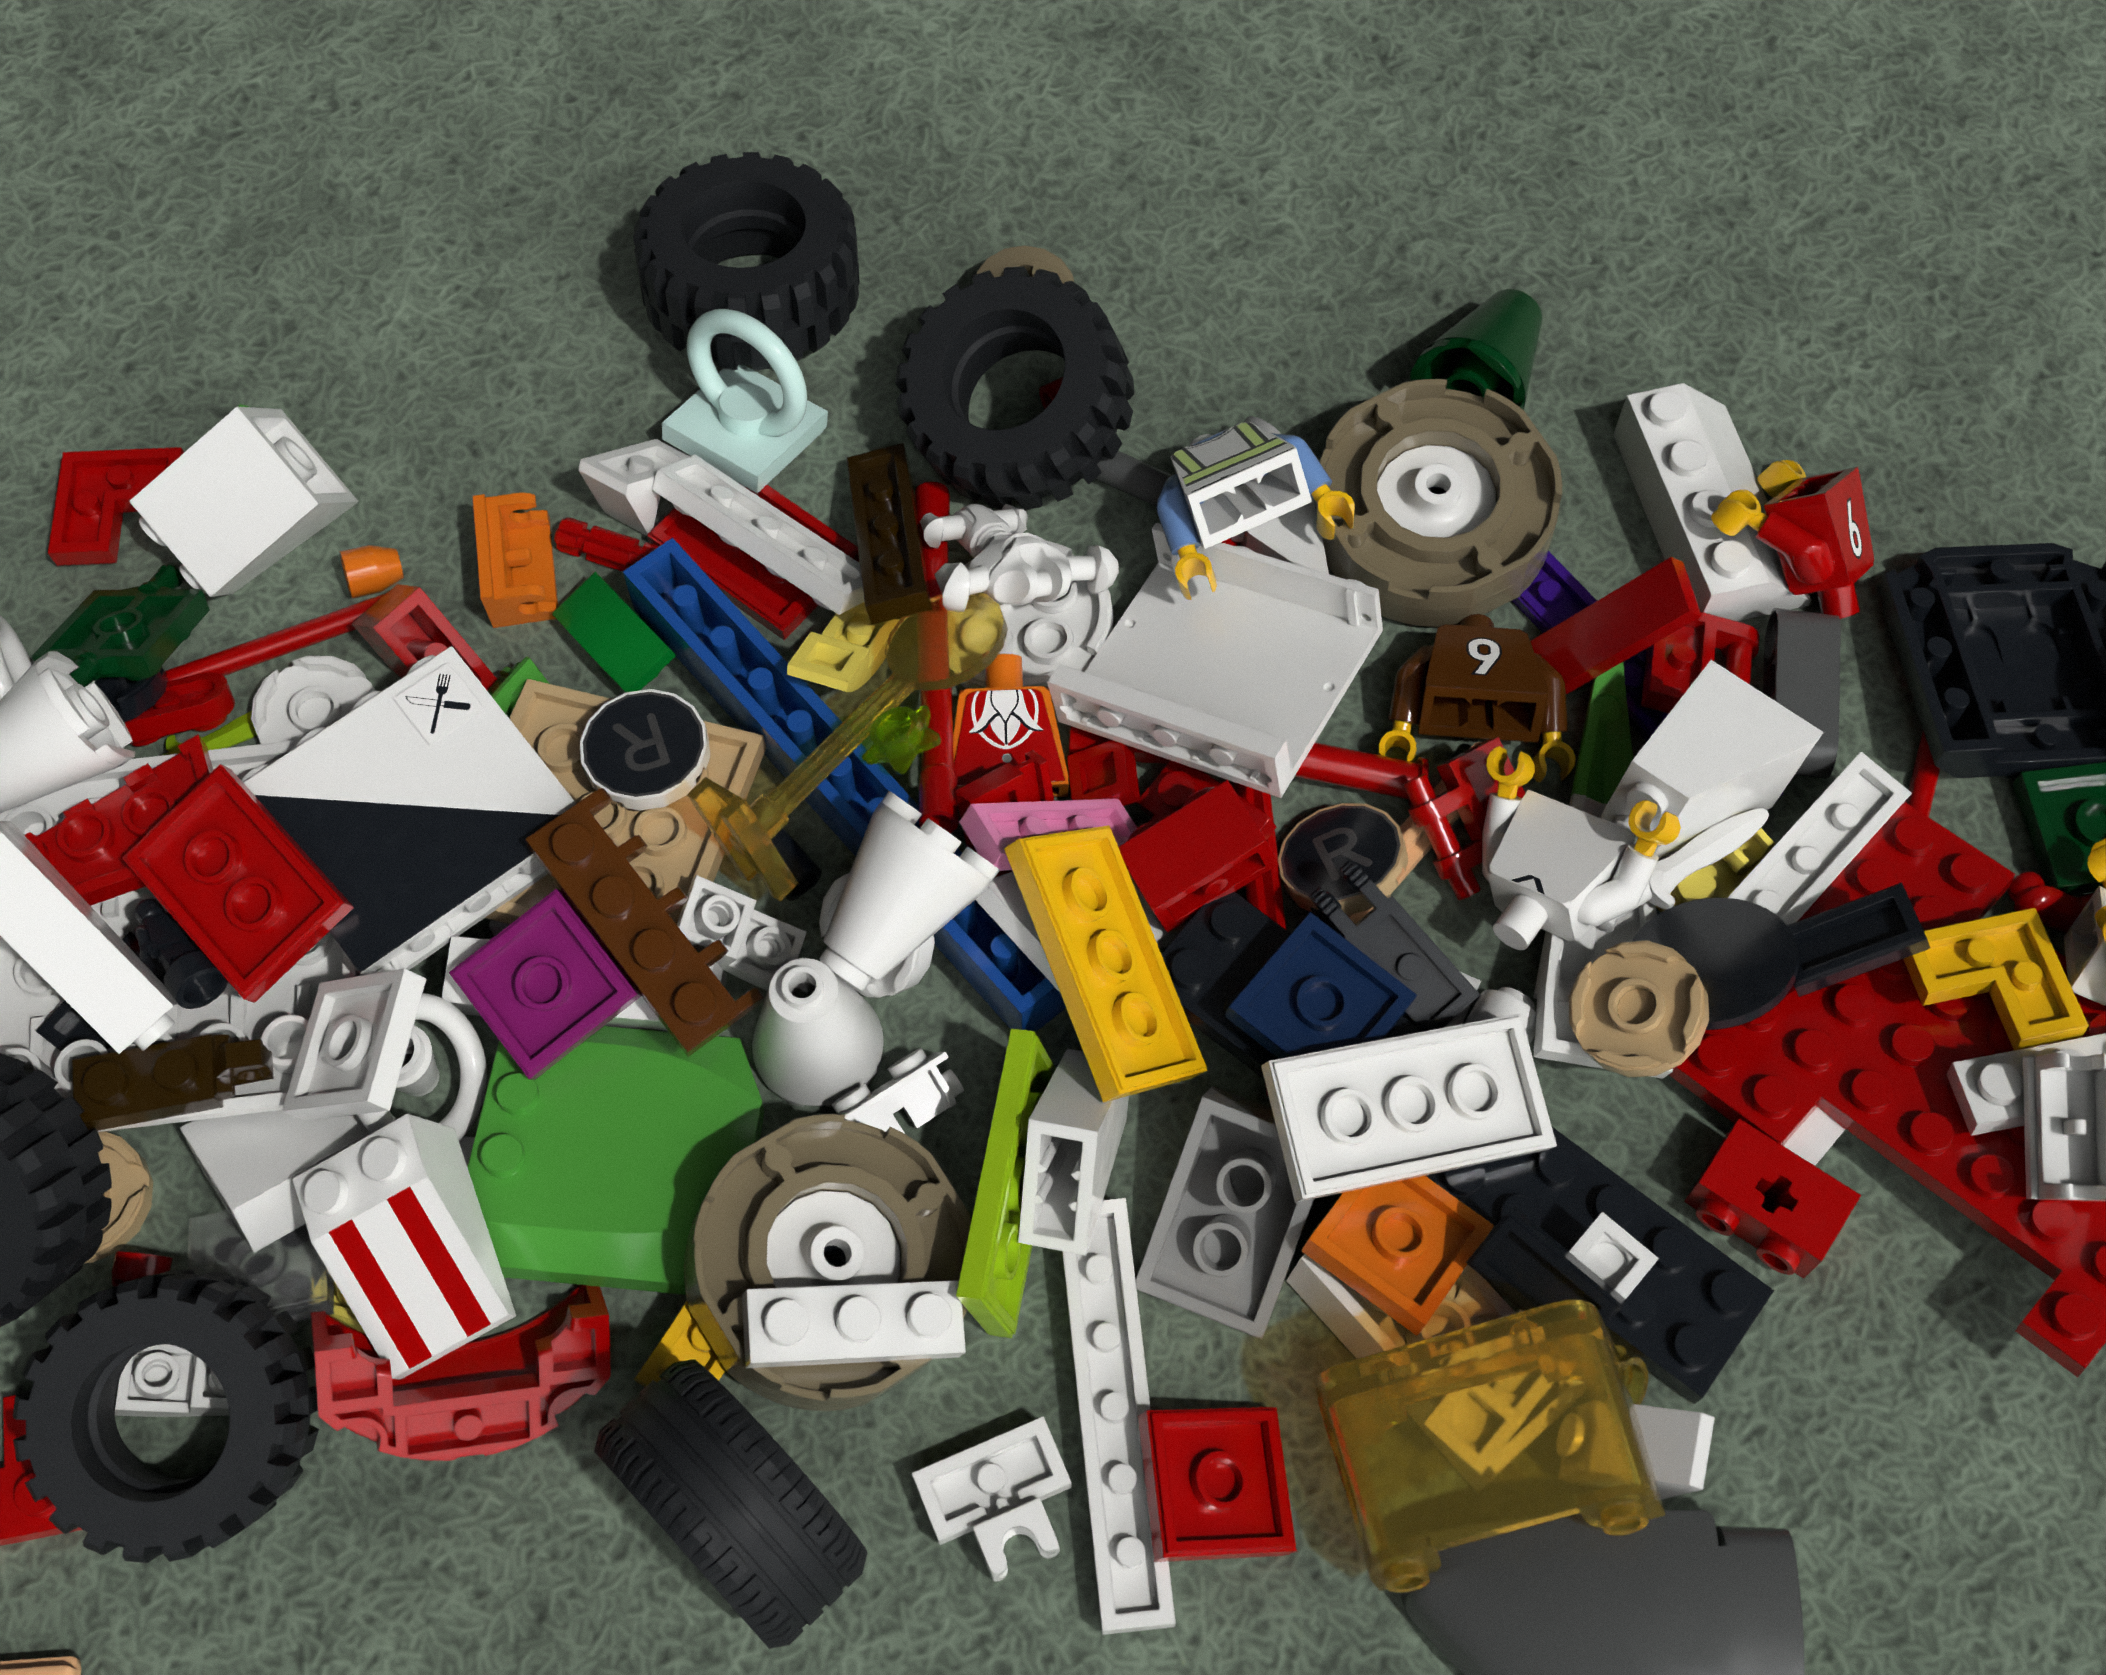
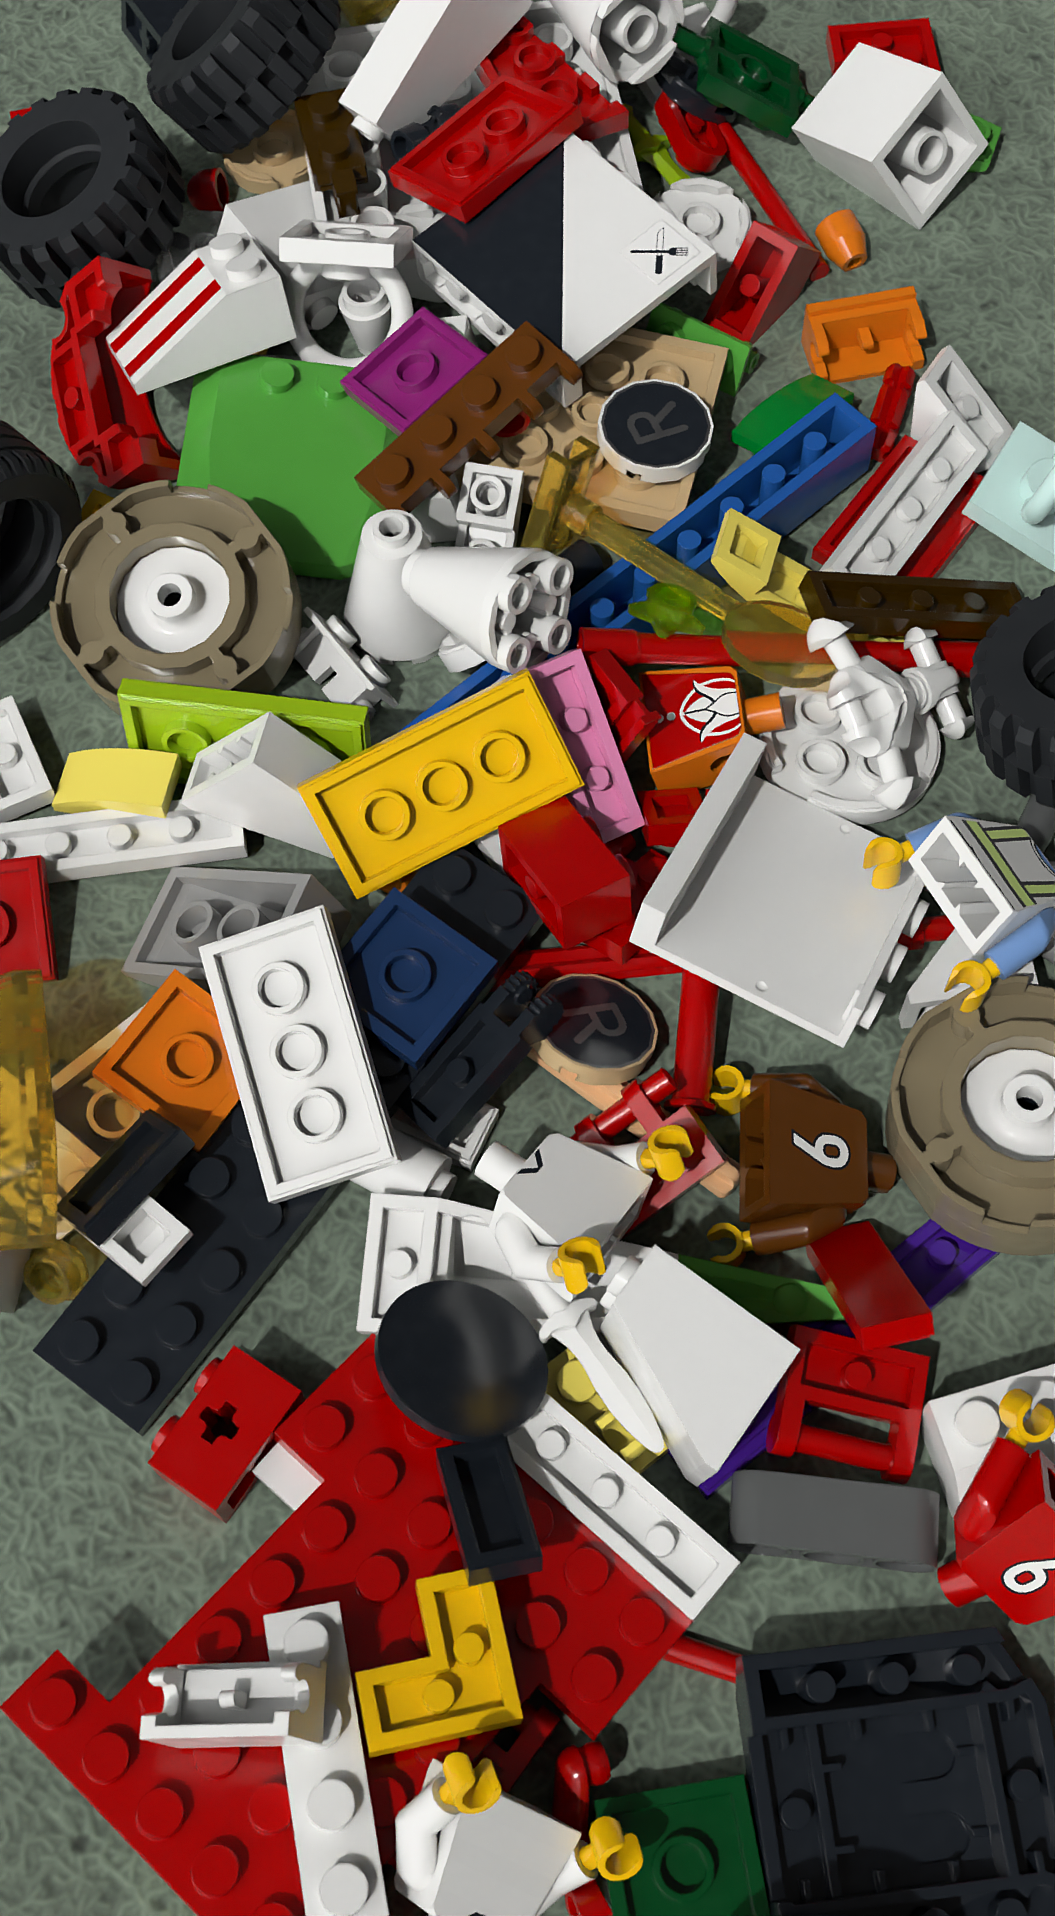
camera: 90 degrees right, 0 degrees up
(852, 1324) = (104, 605): white plate -> none
(1038, 1342) = (118, 780): none -> light yellow slope
(1639, 1009) = (400, 1273): tan tile -> none

